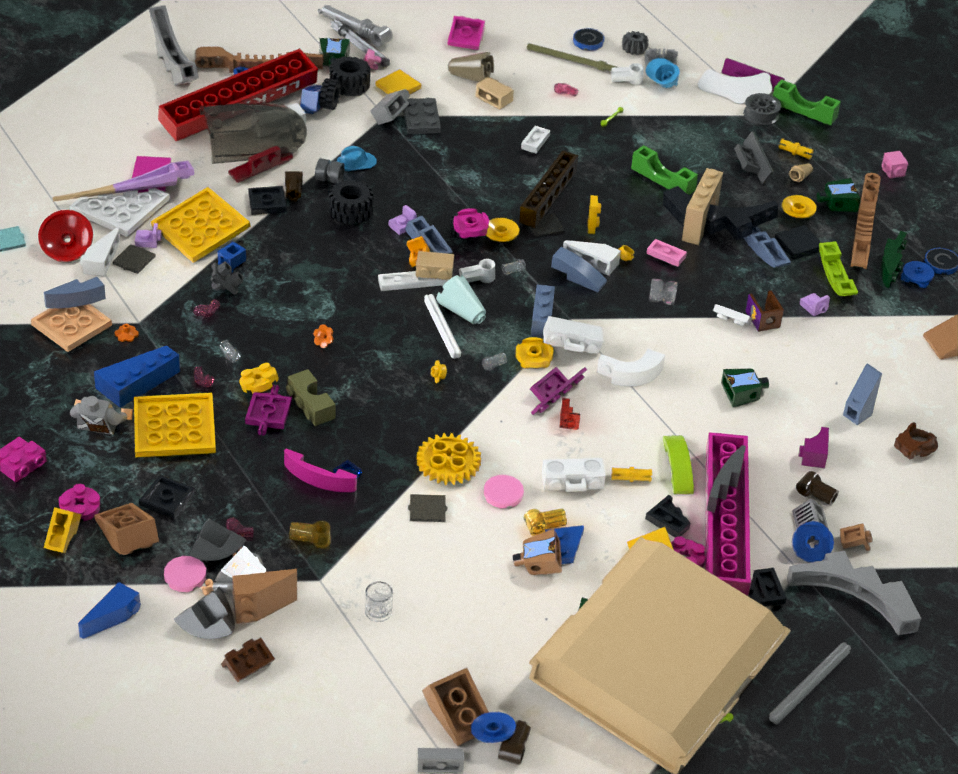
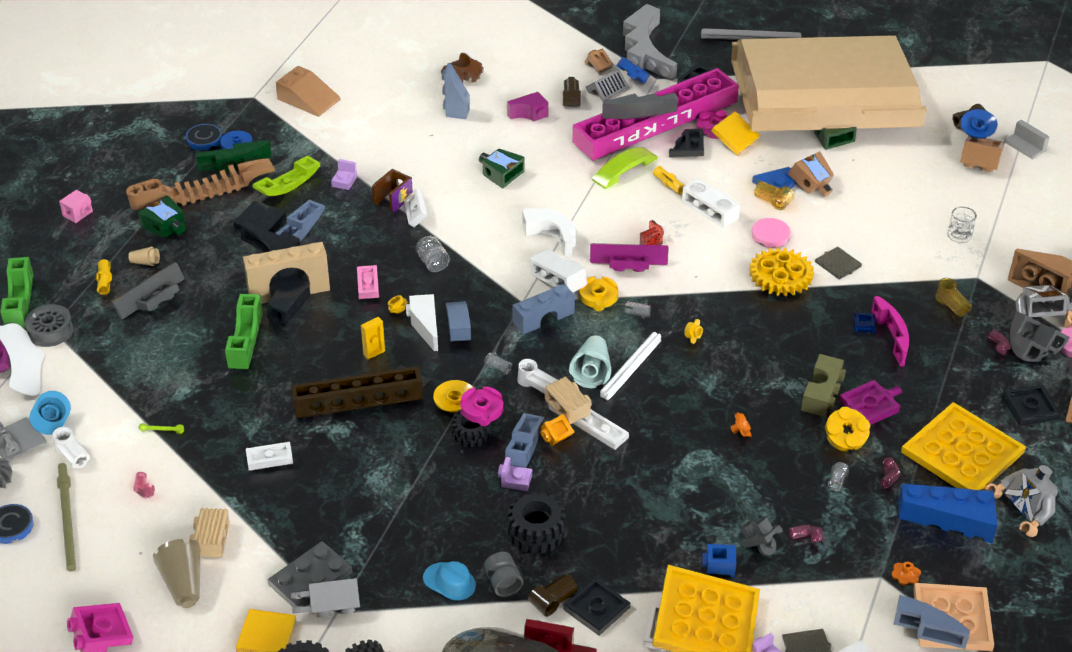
camera: 125 degrees left, 0 degrees up
(799, 206) = (209, 233): yellow dish -> none

